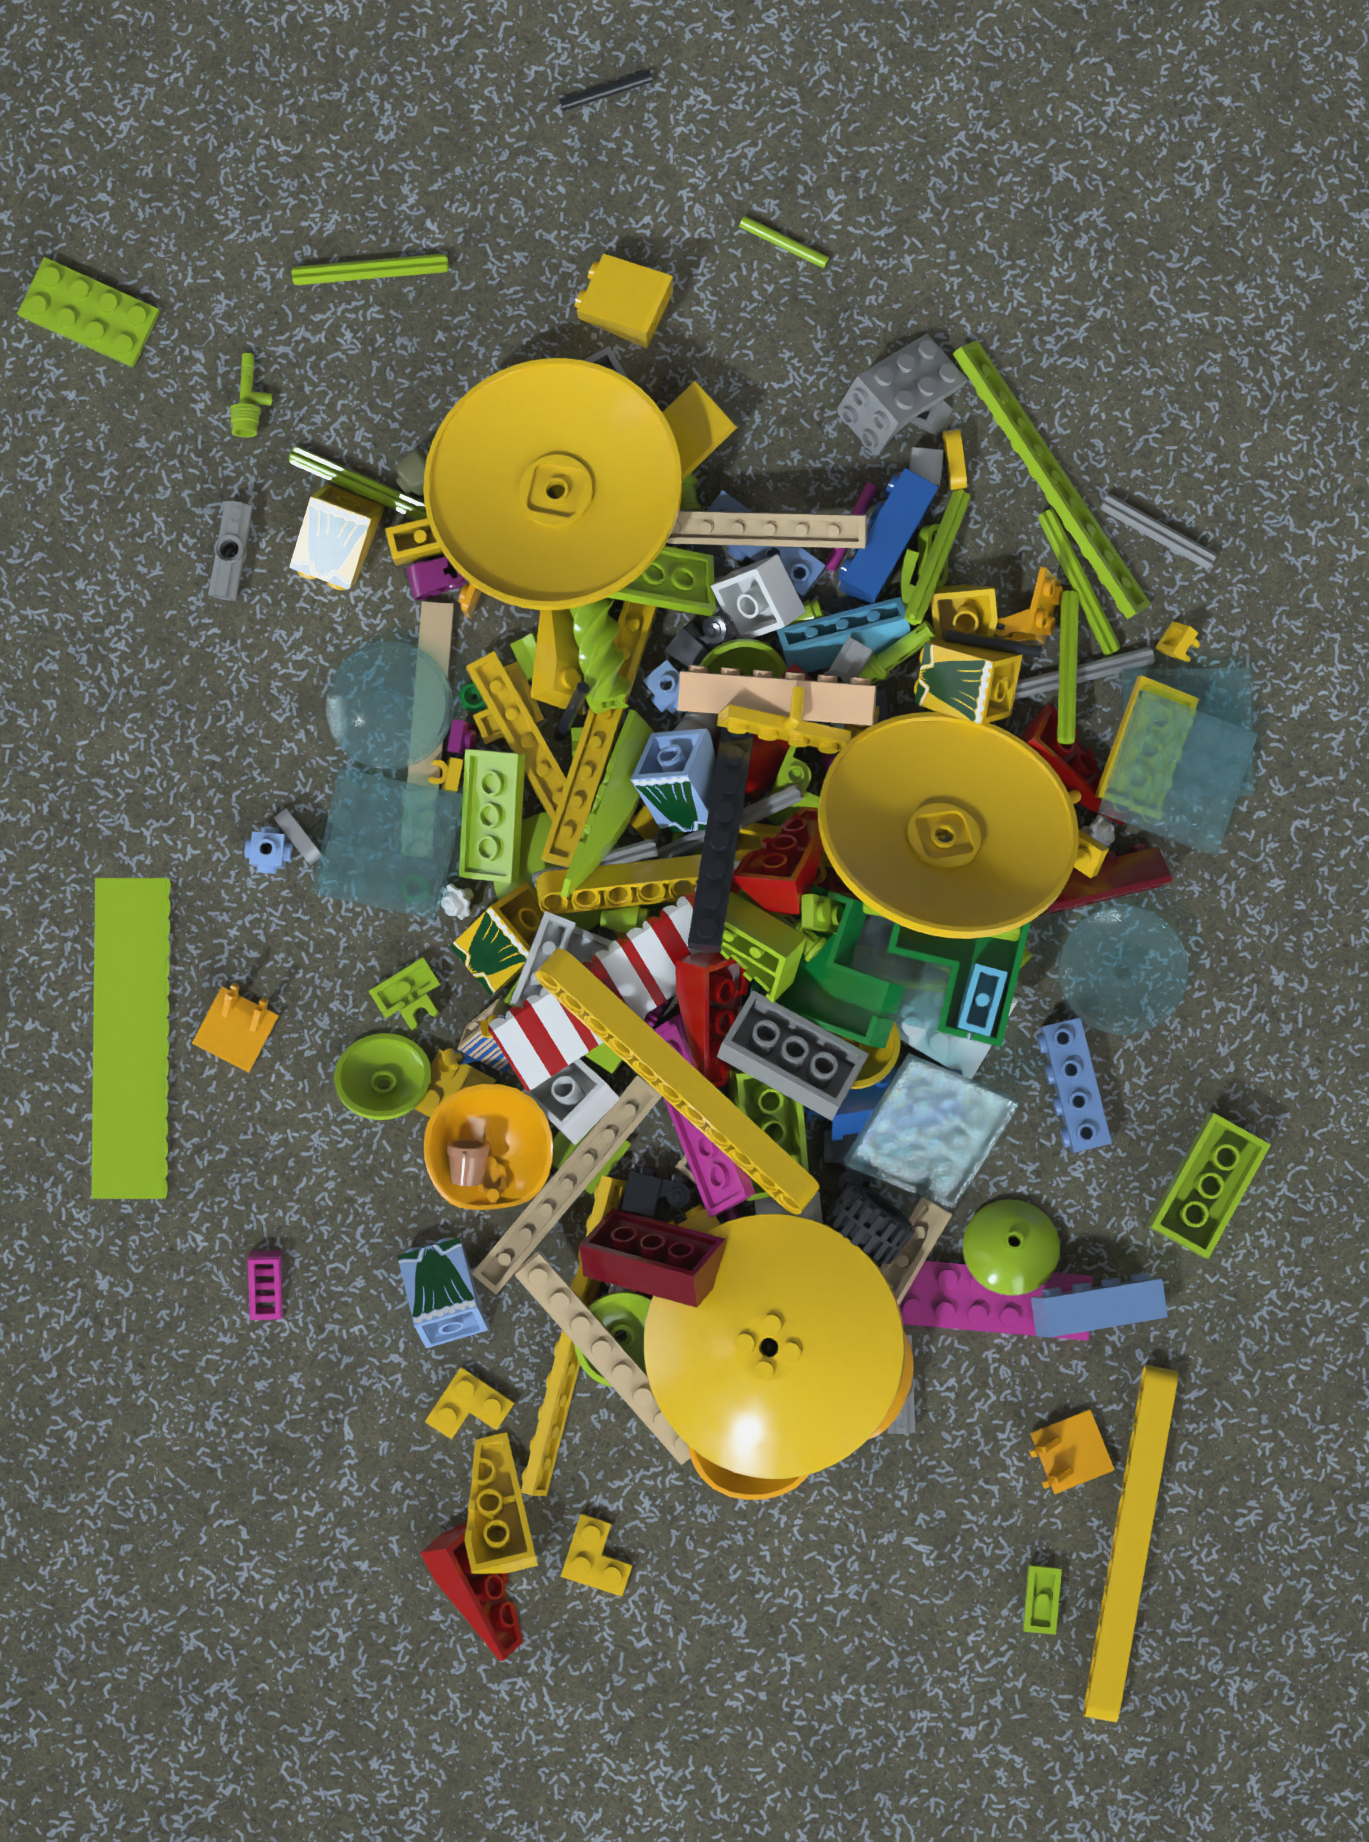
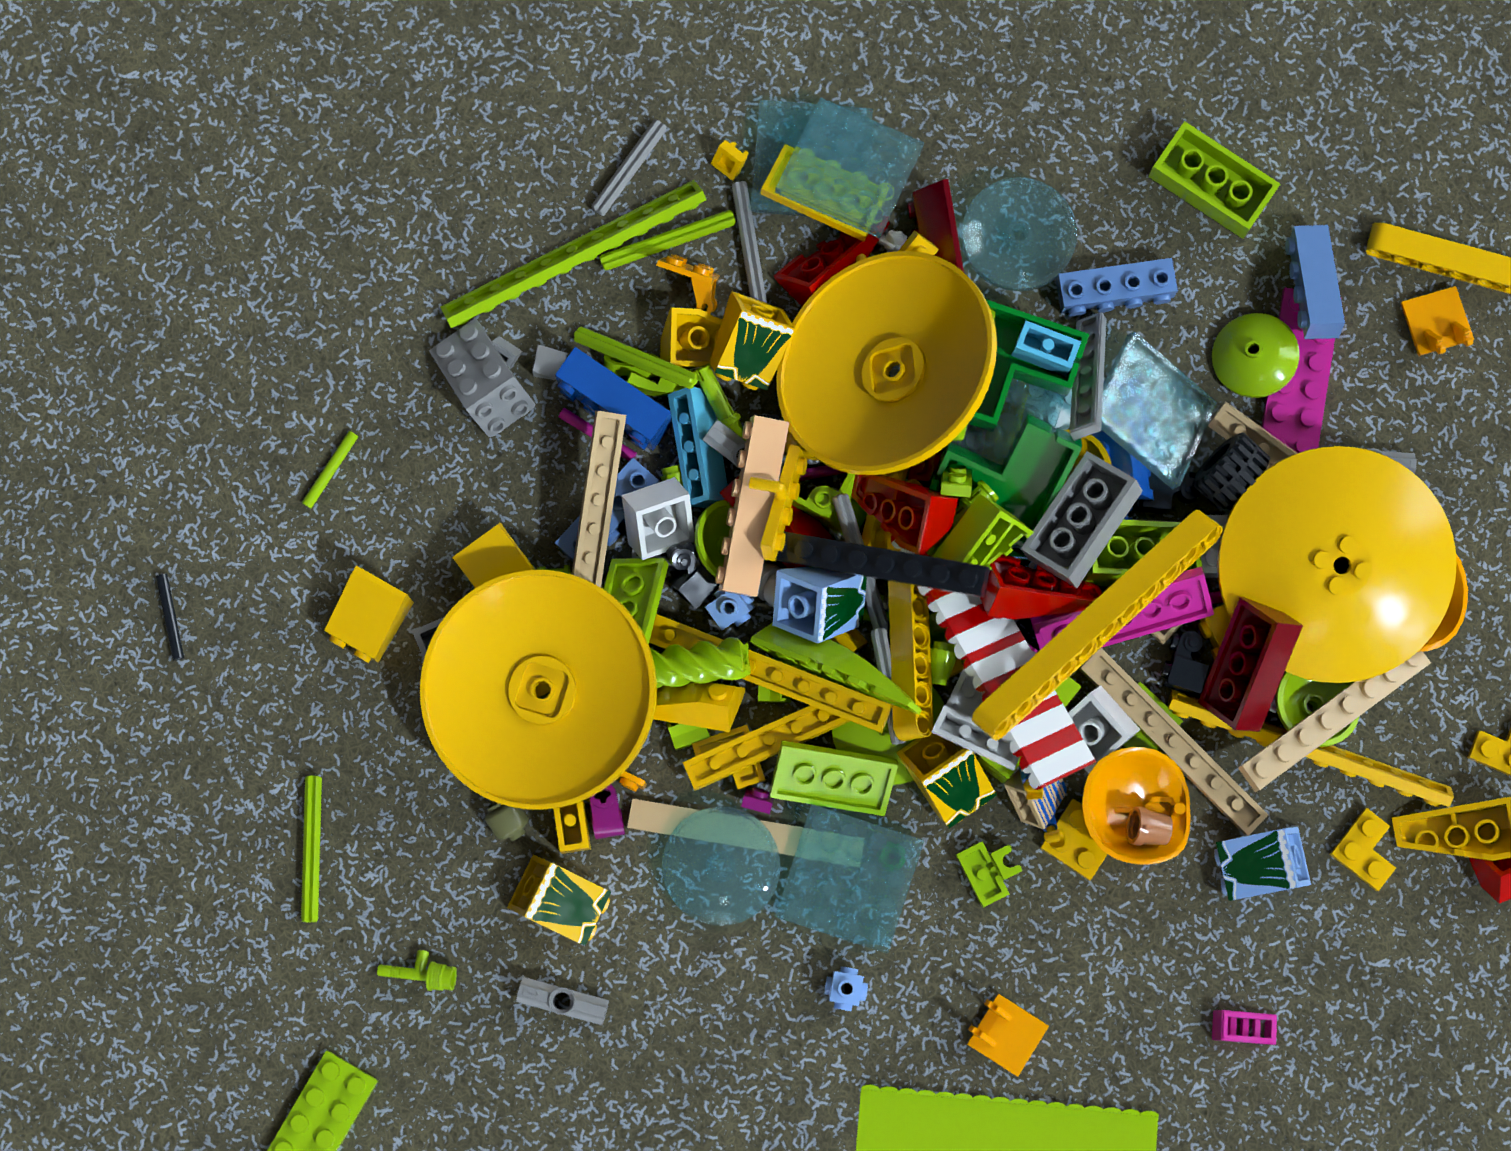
camera: 85 degrees left, 5 degrees down
(298, 836) = (834, 960): light grey beam -> none
(358, 483) = (512, 873): lime axle -> none
(381, 1062) = (1048, 896): lime dish -> none
(450, 774) = (790, 814): yellow tile -> none
(456, 901) = (907, 819): white plant -> none
(468, 703) = (724, 794): green plate -> none
(571, 711) = (745, 695): black bar -> none
(954, 459) = (546, 336): yellow beam -> none
(959, 1054) = (1088, 383): none -> light grey tile
(993, 643) = (719, 315): black bar -> none
(1068, 667) = (744, 254): lime axle -> none

